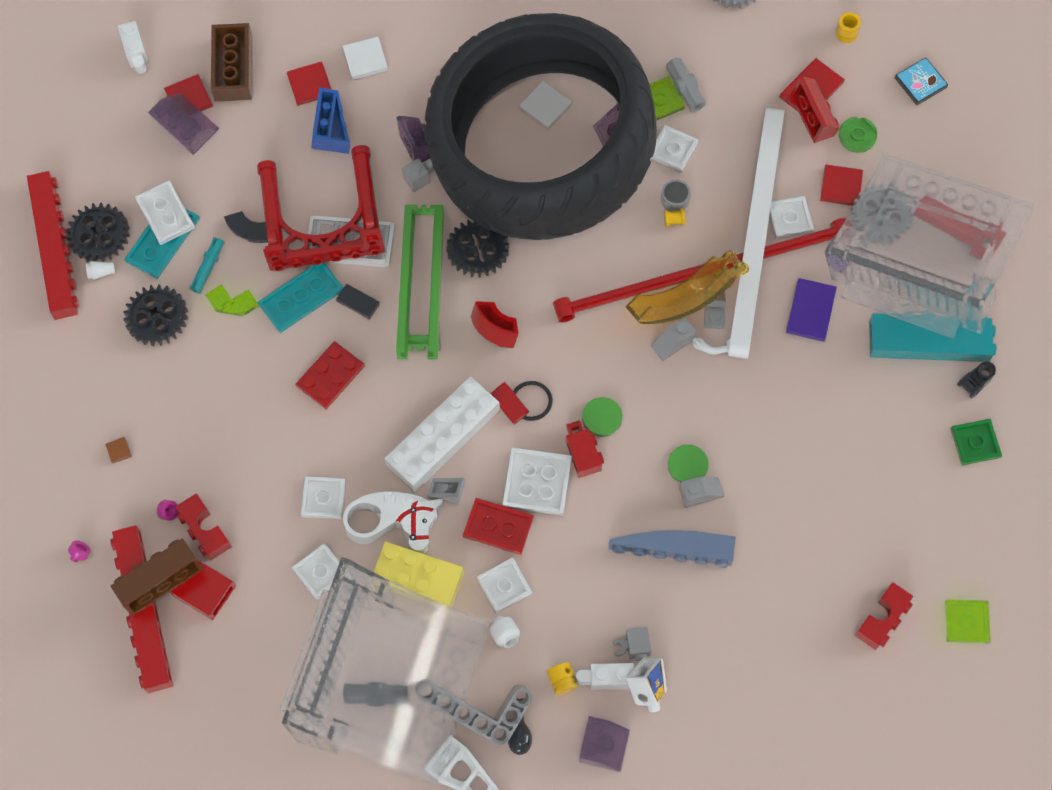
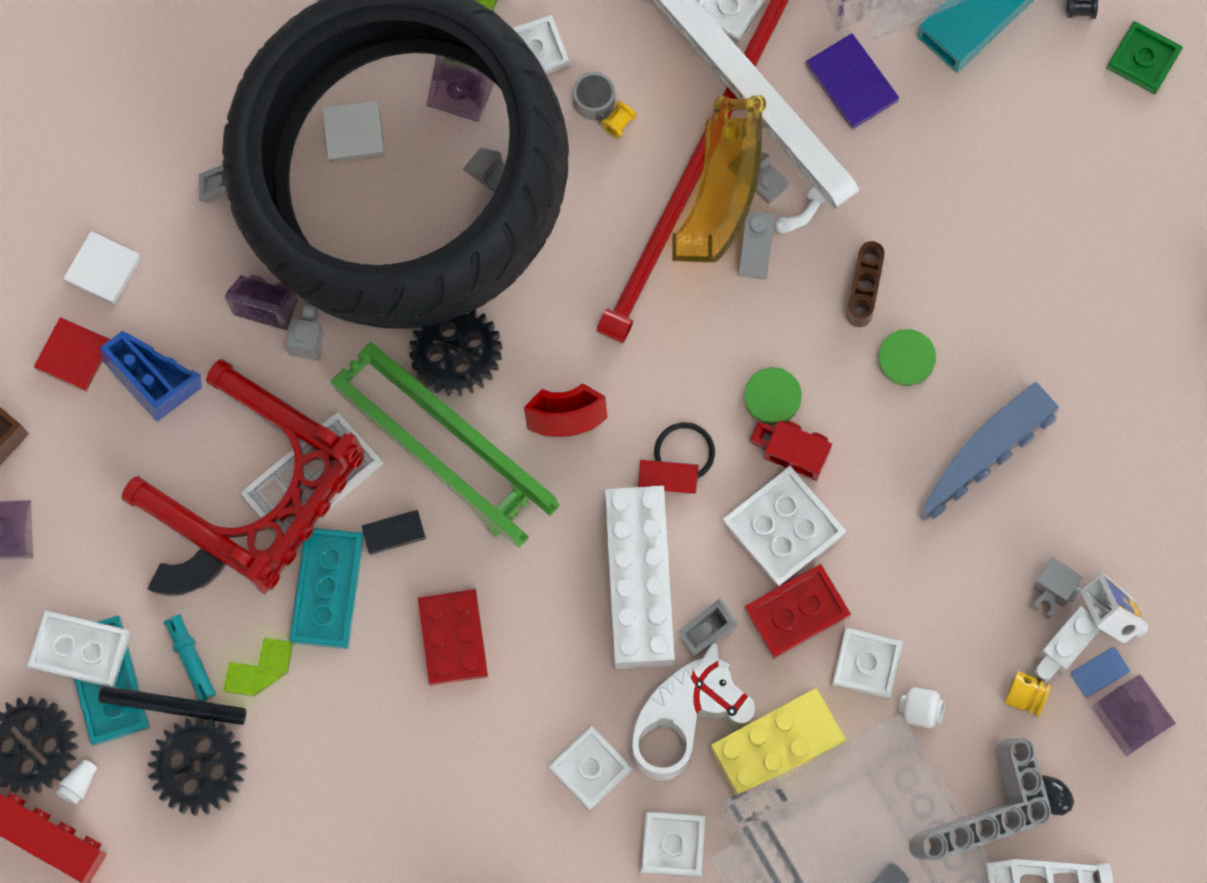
camera: 45 degrees left, 5 degrees up
(175, 277) = (172, 705): none -> black axle
(612, 708) = (1100, 672): none -> medium blue sticker
(700, 490) = (949, 371): light grey slope -> none
(711, 401) = (865, 271): none -> reddish brown beam

